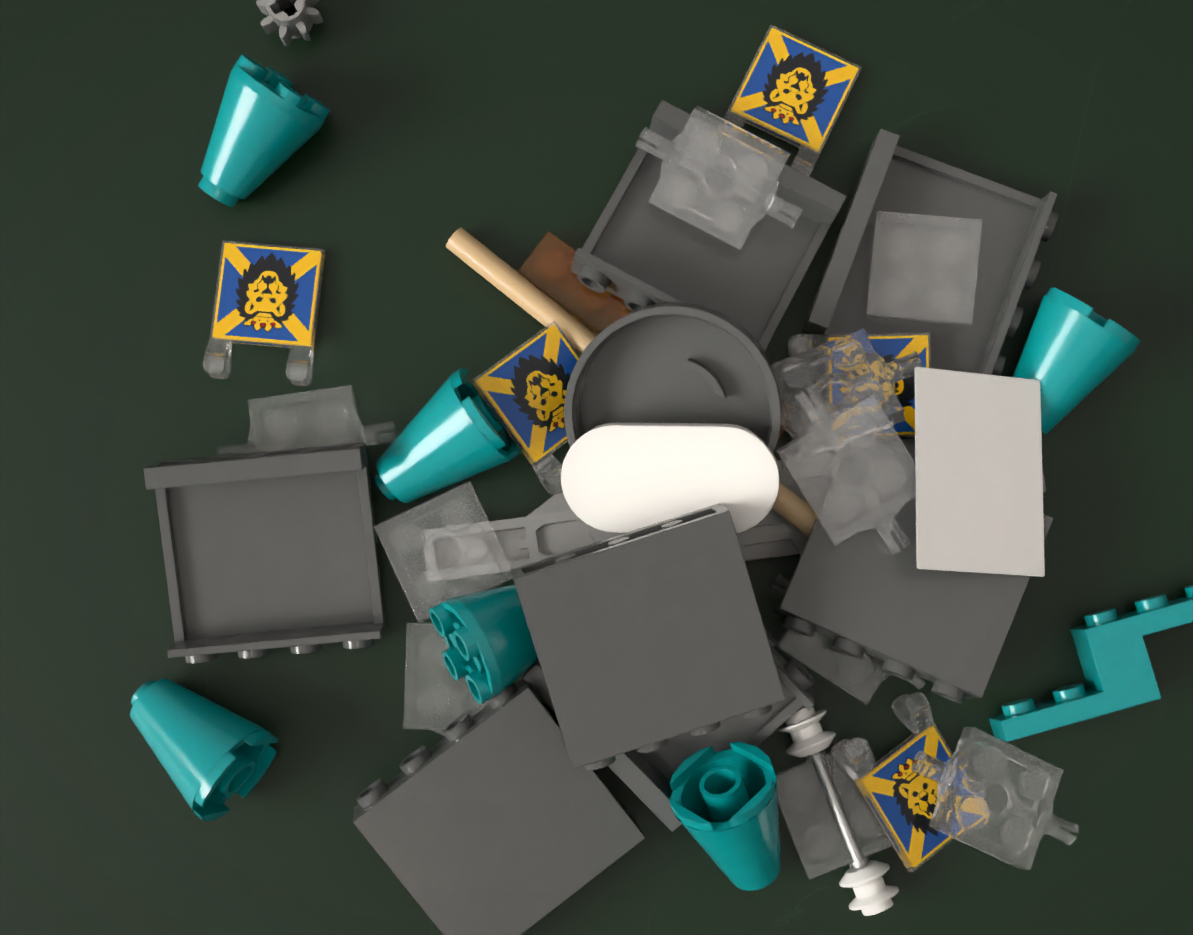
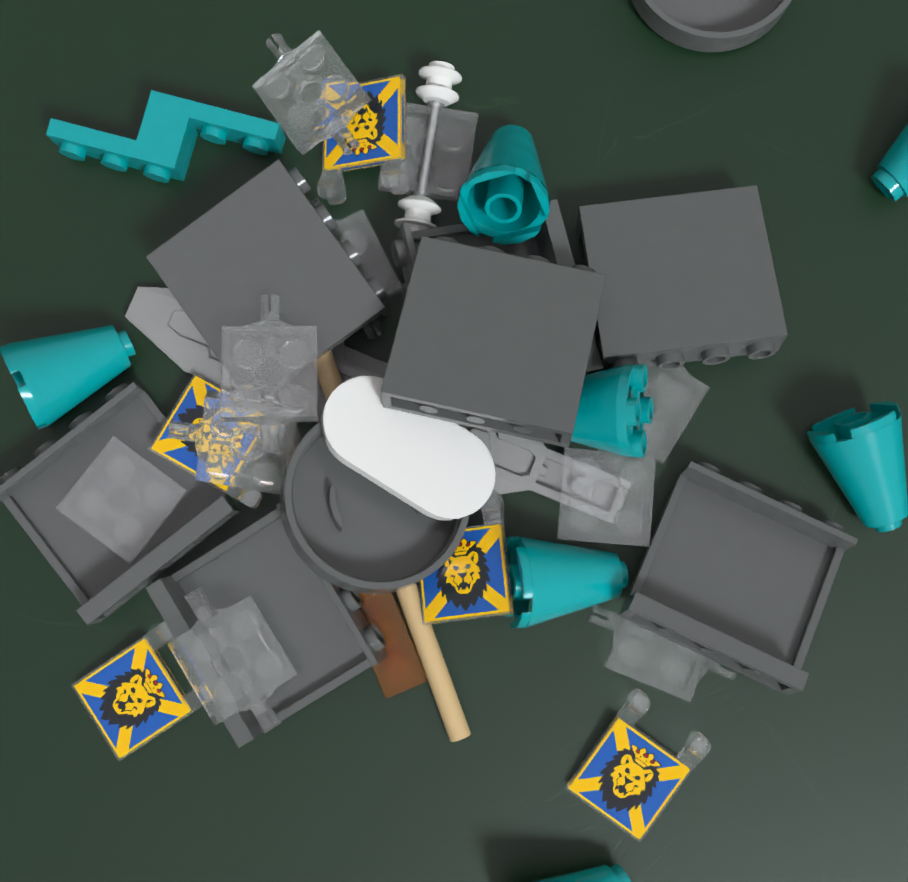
camera: 150 degrees left, 0 degrees up
(978, 473) = (179, 318): white sticker -> none

